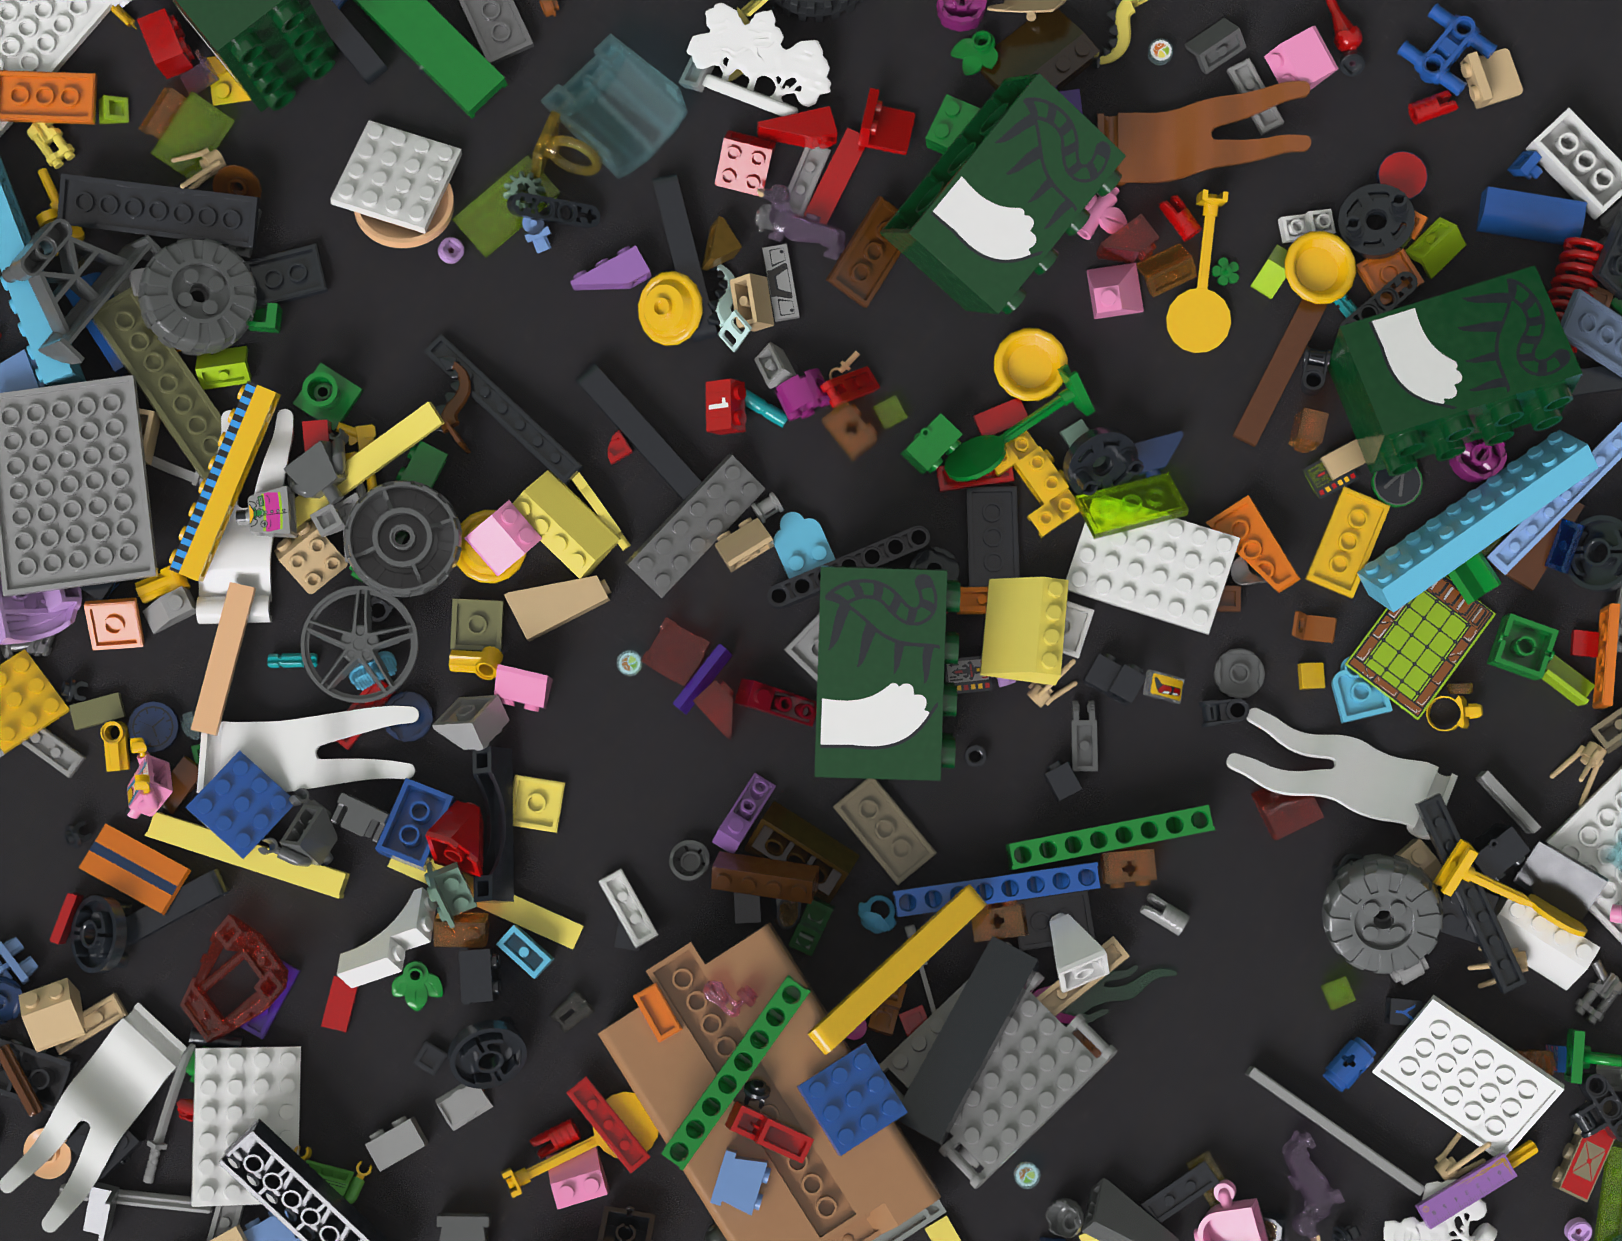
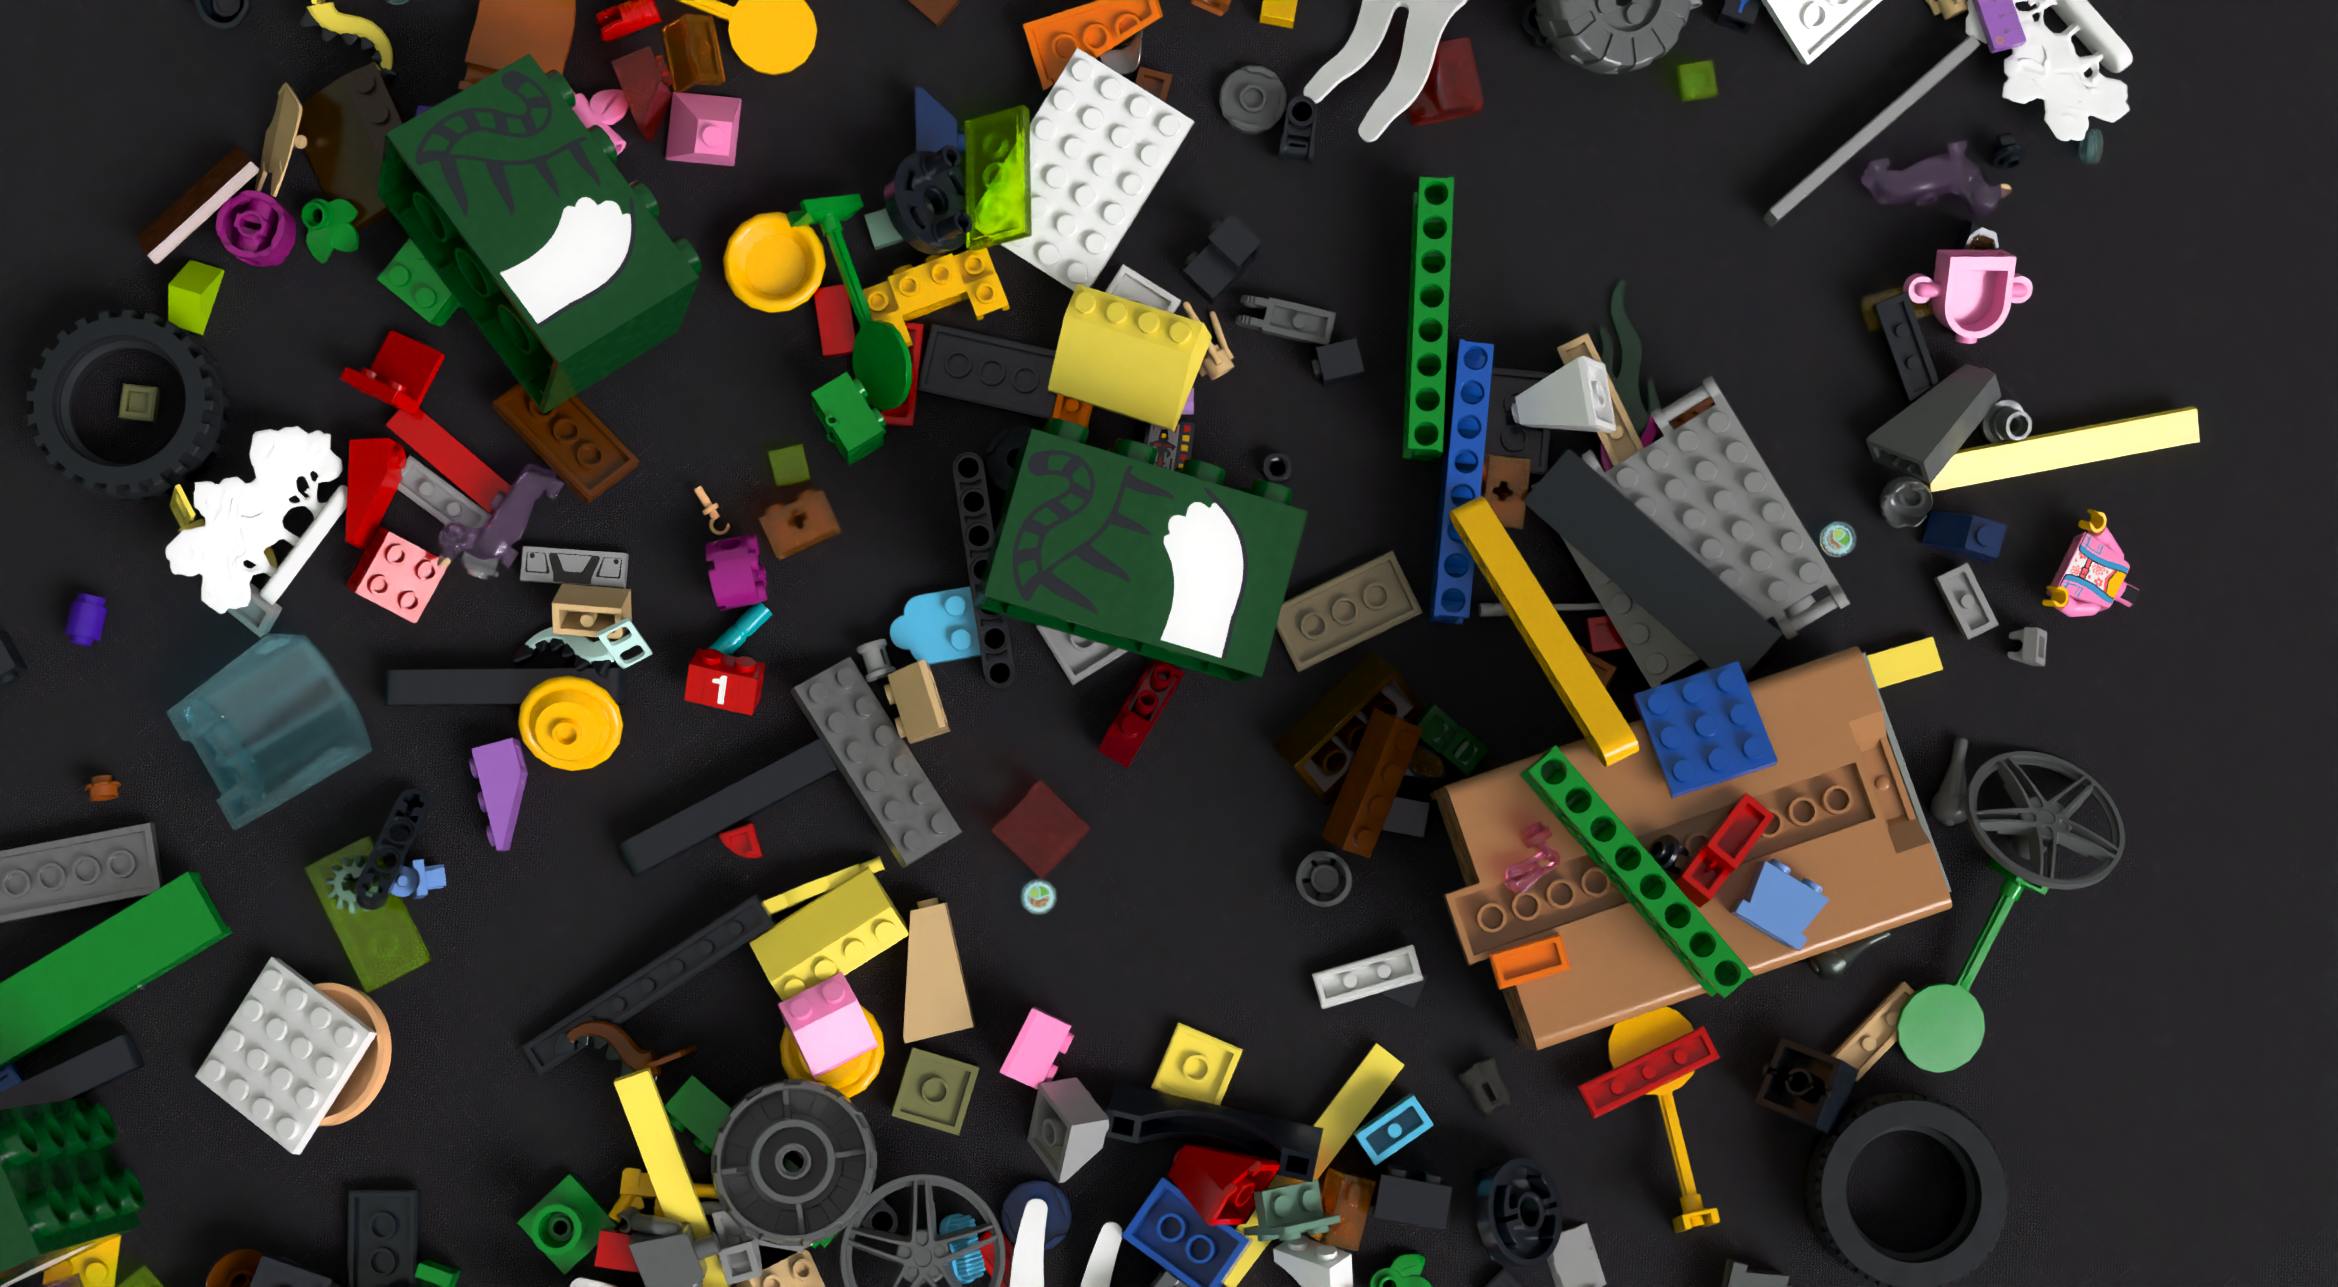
camera: 80 degrees left, 0 degrees up
(450, 250) = (409, 1005): lavender tile -> none
(481, 663) = (990, 1094): yellow piece -> none
(550, 144) = (301, 832): clear yellow tile -> none
(560, 1137) = (1649, 1140): red hinge -> none
(578, 1179) = (1711, 1130): bright pink slope -> none
(702, 678) = (1085, 803): dark purple tile -> none
(718, 706) = (1130, 789): clear red slope -> none
(721, 245) = (500, 634): pearl gold slope -> none
(743, 814) = (1279, 792): medium lavender slope -> none
(774, 365) = (686, 602): light grey slope -> none
(850, 386) = (741, 507): red plate -> none
(874, 921) = (1464, 653): dark azure piece -> none
(1142, 861) = (1472, 285): clear orange brick -> none
(1163, 686) = (1247, 198): slope -> none
(1170, 917) = (1548, 270): light grey hinge -> none
(1344, 1077) = (1777, 76): blue piece -> none

